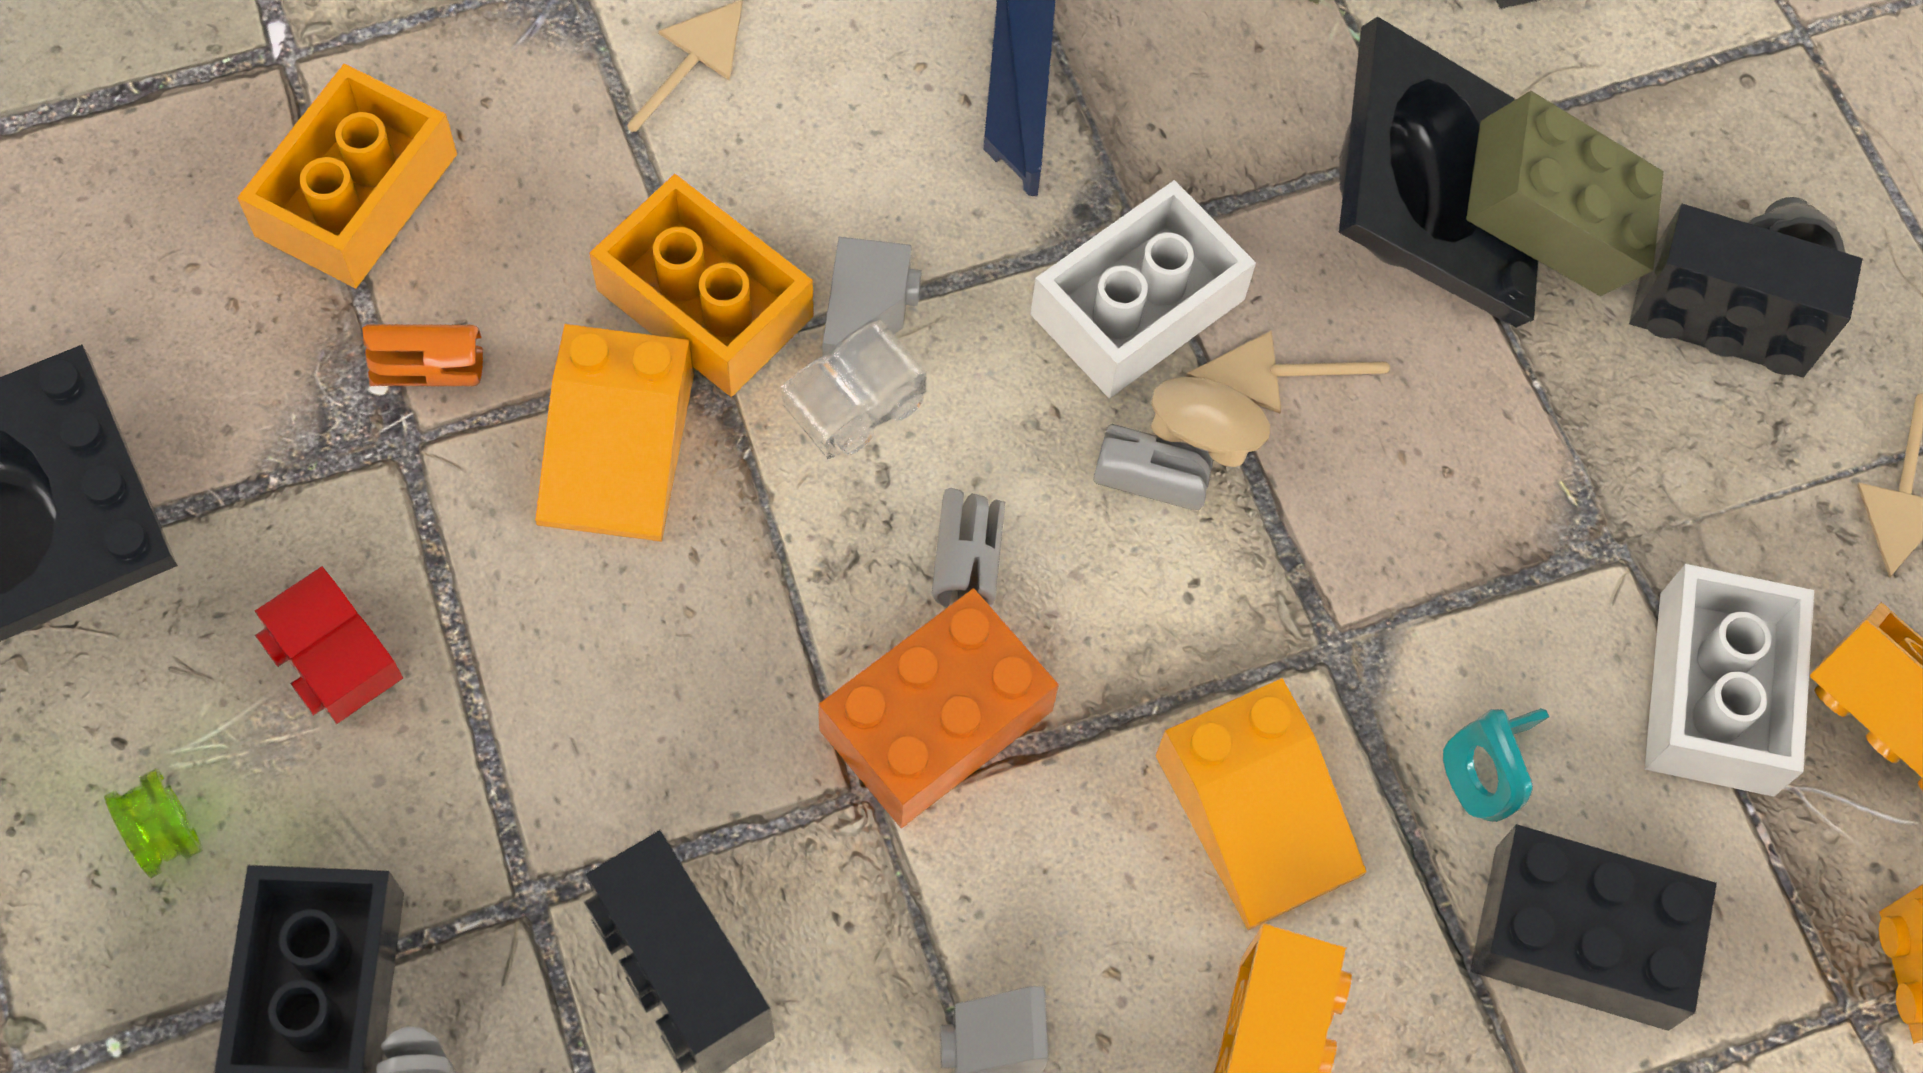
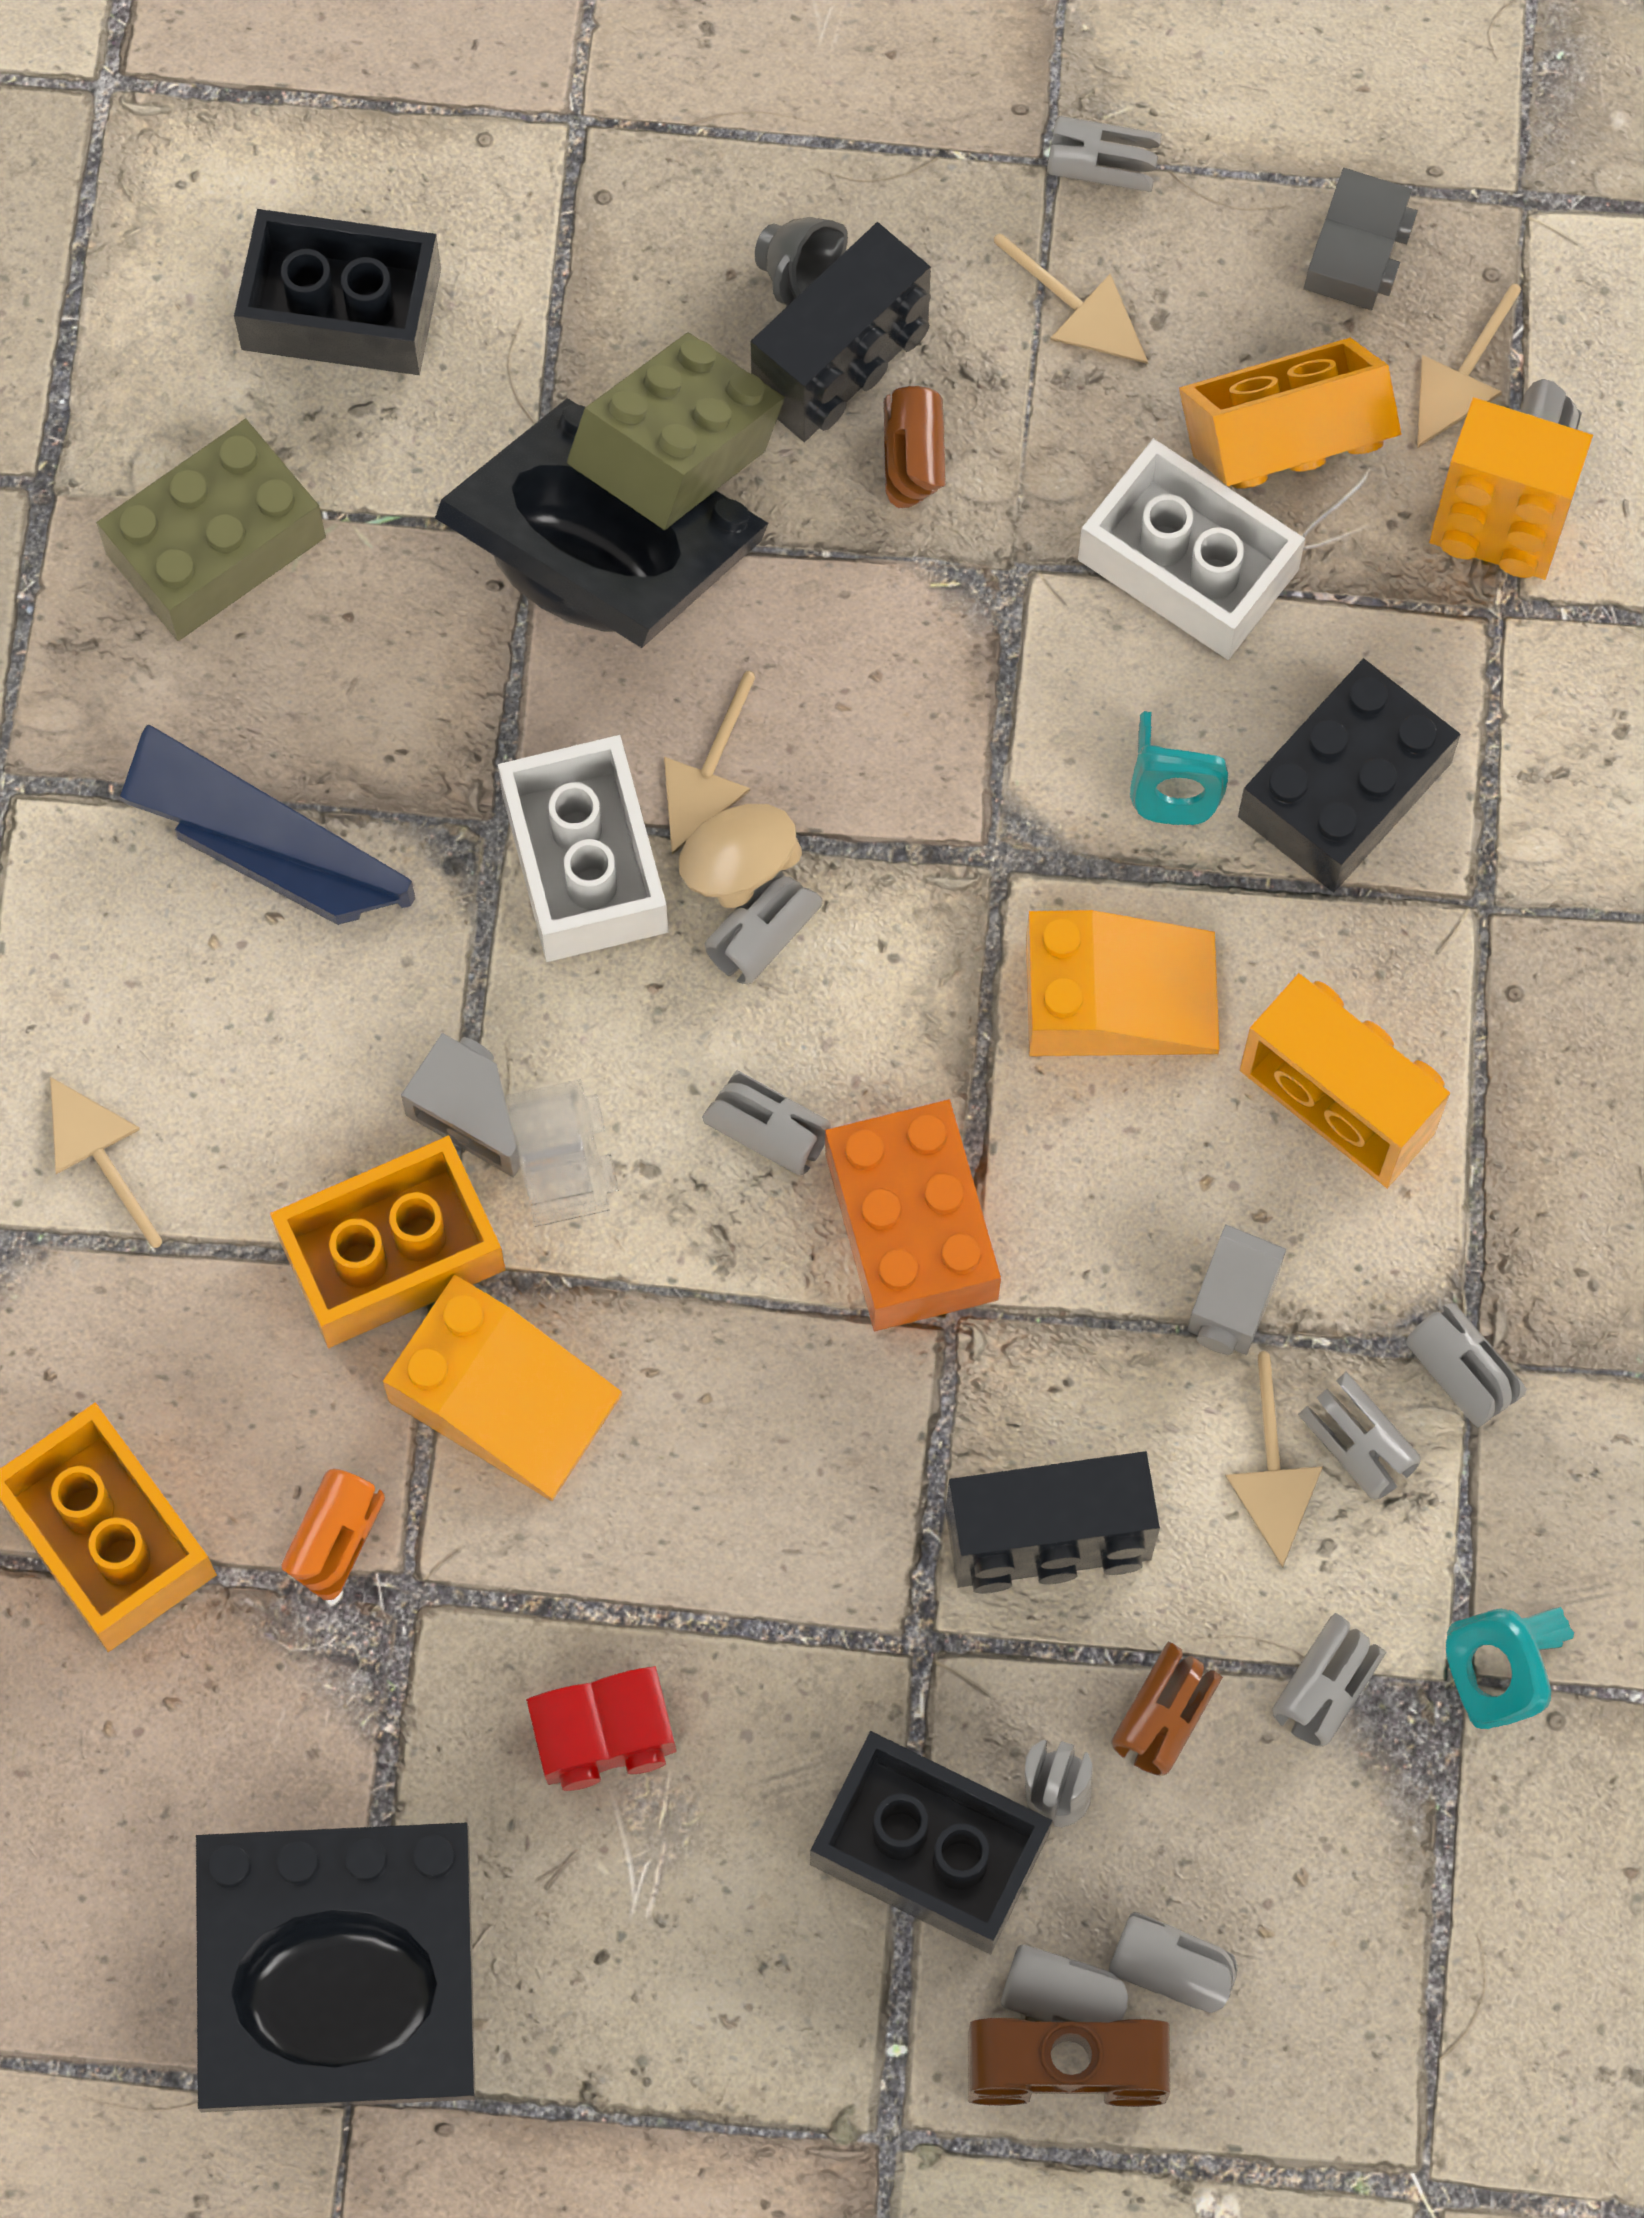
camera: 60 degrees left, 5 degrees up
(153, 823) = (714, 1934): clear neon green wheel -> none
(1680, 404) = (913, 445): none -> dark orange arm

